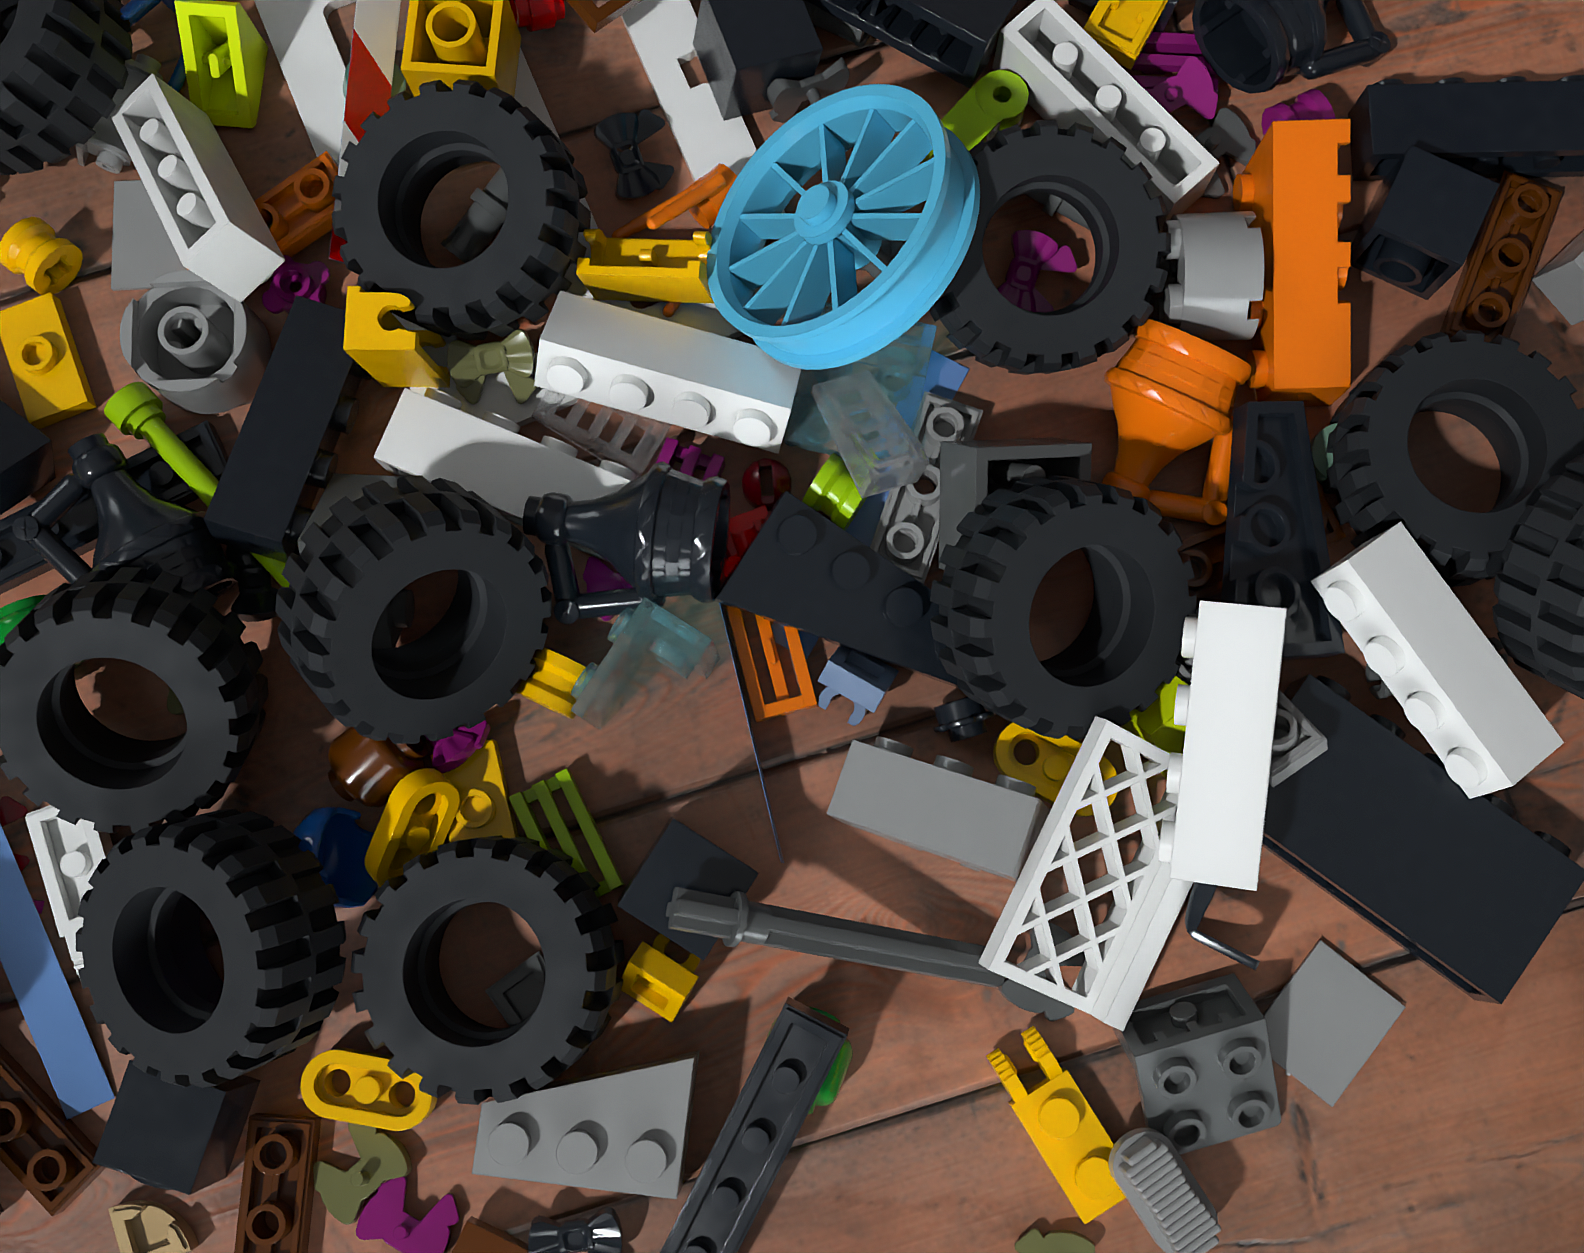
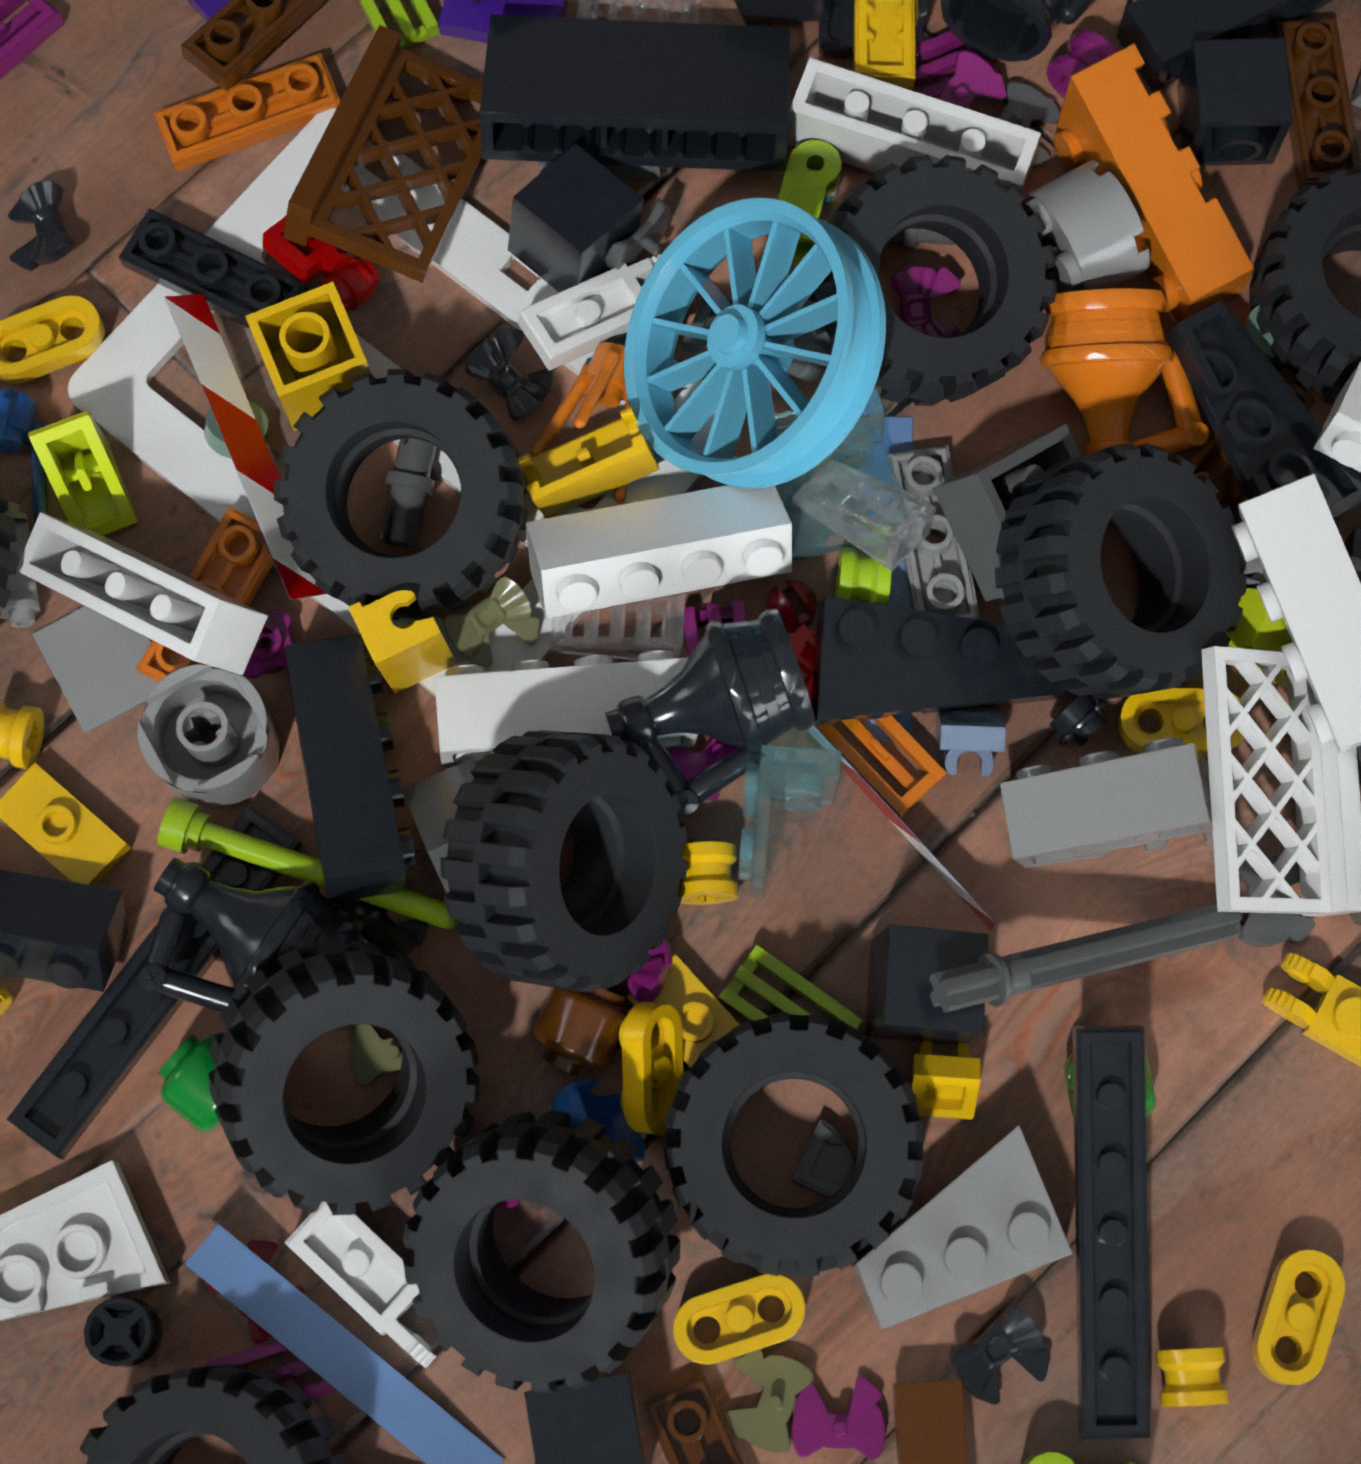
camera: 30 degrees left, 5 degrees down
(717, 131) = (584, 314): none -> white hinge

